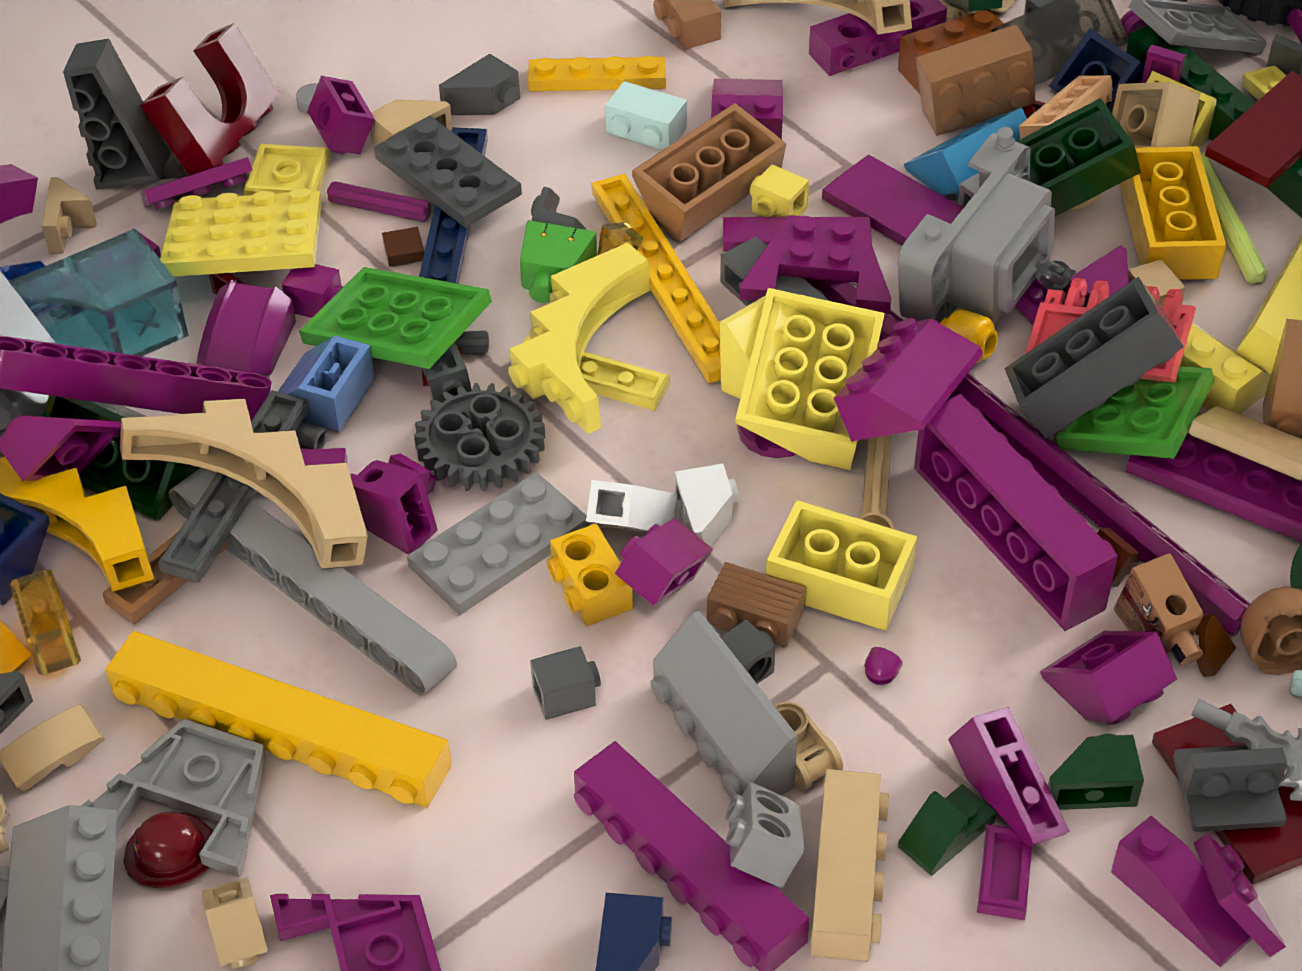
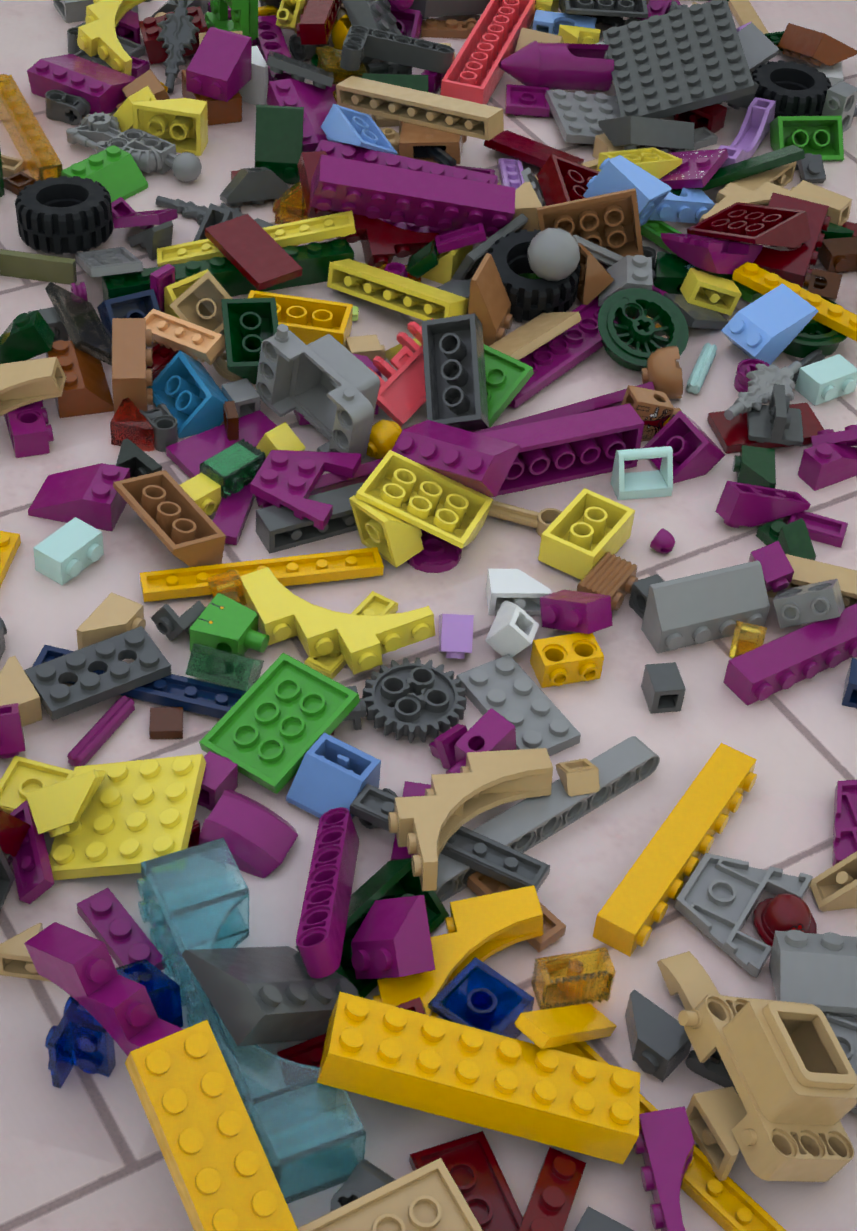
camera: 85 degrees left, 5 degrees down
(238, 175) = (63, 802): none -> light yellow slope
(354, 589) = (578, 777): none -> tan slope
(483, 258) = (223, 666): none -> clear green brick
(536, 167) = (110, 619): none -> tan slope
(608, 455) = (455, 635): none -> lavender slope
(688, 777) = (746, 638): none -> clear yellow slope
(814, 771) = (775, 566): none -> magenta brick
(815, 135) = (136, 459): none -> pearl dark grey slope
(830, 199) = (234, 467): none -> clear green brick
(891, 239) = (280, 439): none -> light yellow brick
(893, 116) = (131, 424): none -> clear red slope
(903, 140) = (164, 426): none -> dark grey piece
(926, 188) = (231, 420): none -> reddish brown tile
(1010, 629) = (646, 483): none -> light aqua tile

